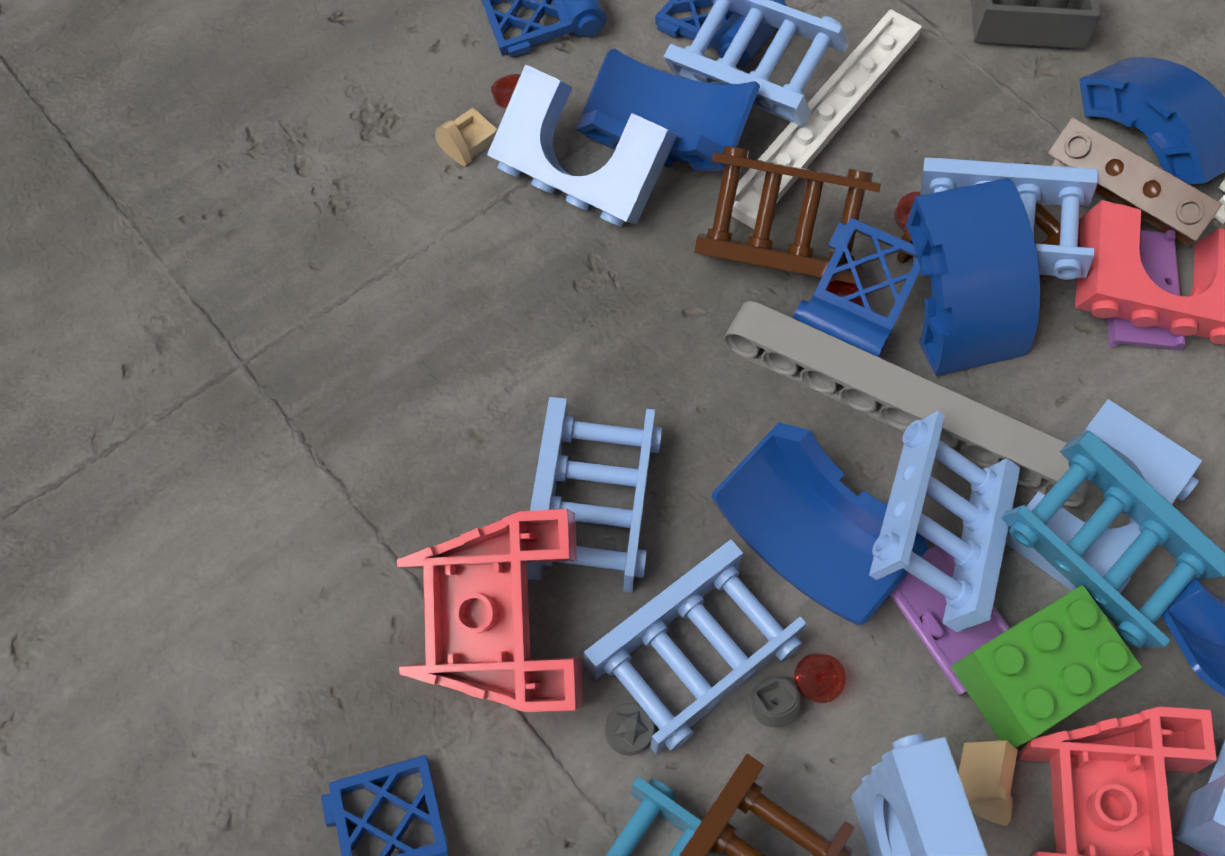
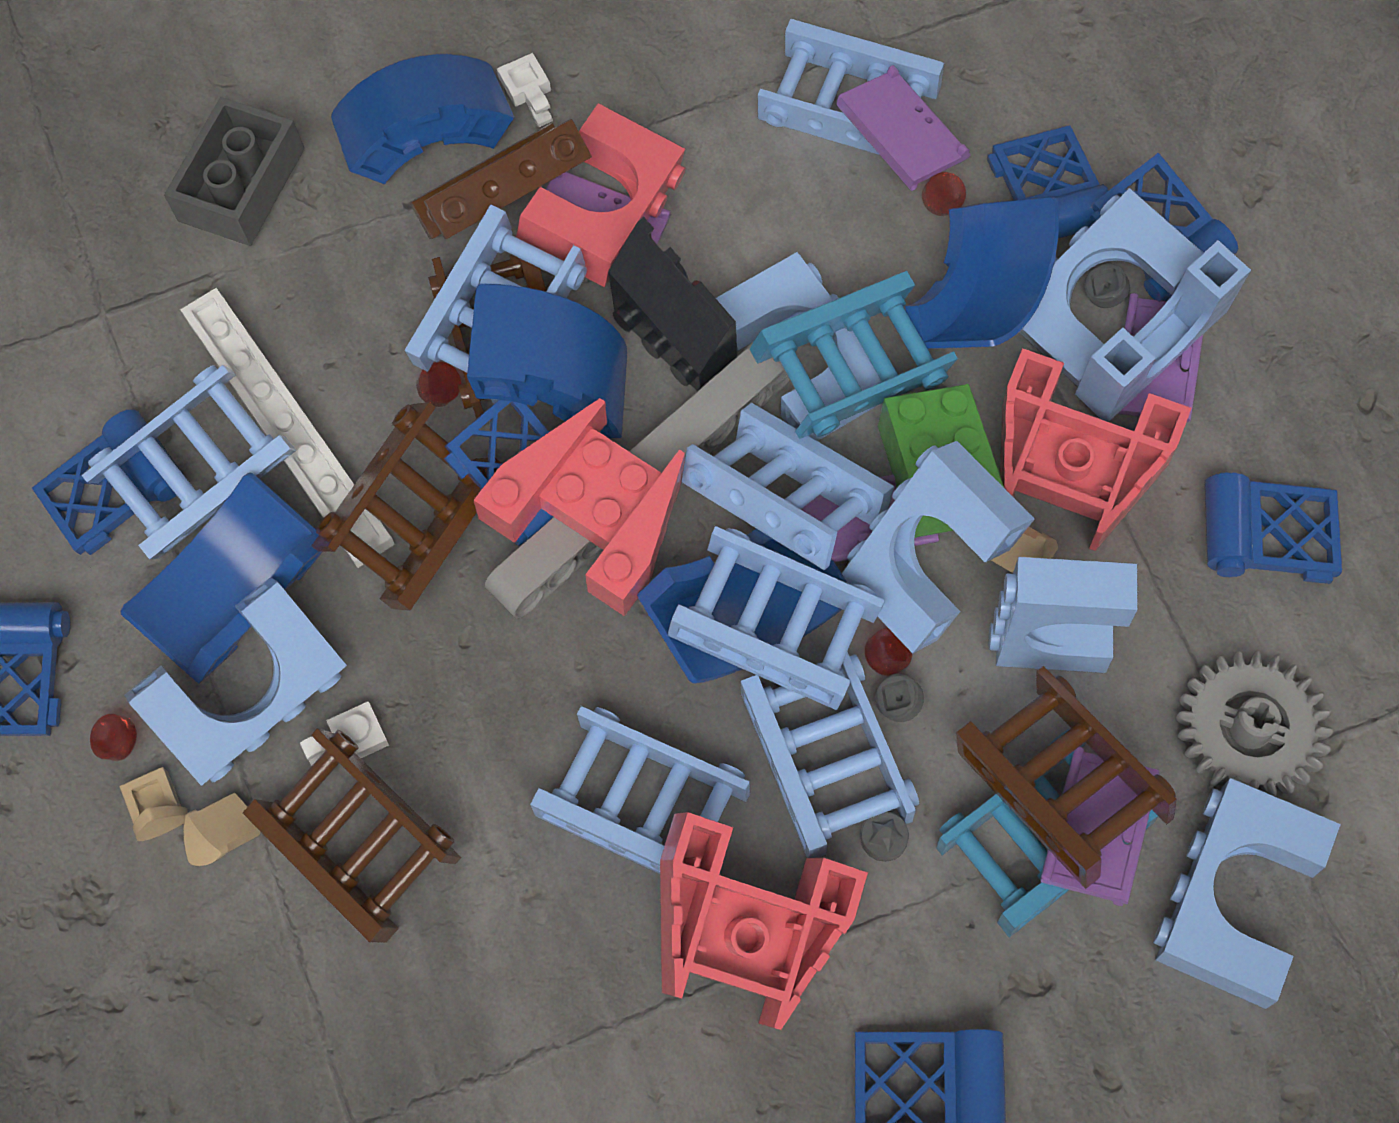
camera: 65 degrees left, 5 degrees up
(459, 184) = (217, 830): none -> tan tile
(459, 246) = (308, 849): none -> reddish brown fence
(569, 253) = (356, 723): none -> white plate
(762, 567) = (739, 642): none -> light blue fence
(864, 352) = (594, 491): none -> coral wedge
(988, 694) = (963, 496): none -> light blue arch
(1079, 360) = (669, 312): none -> black wedge

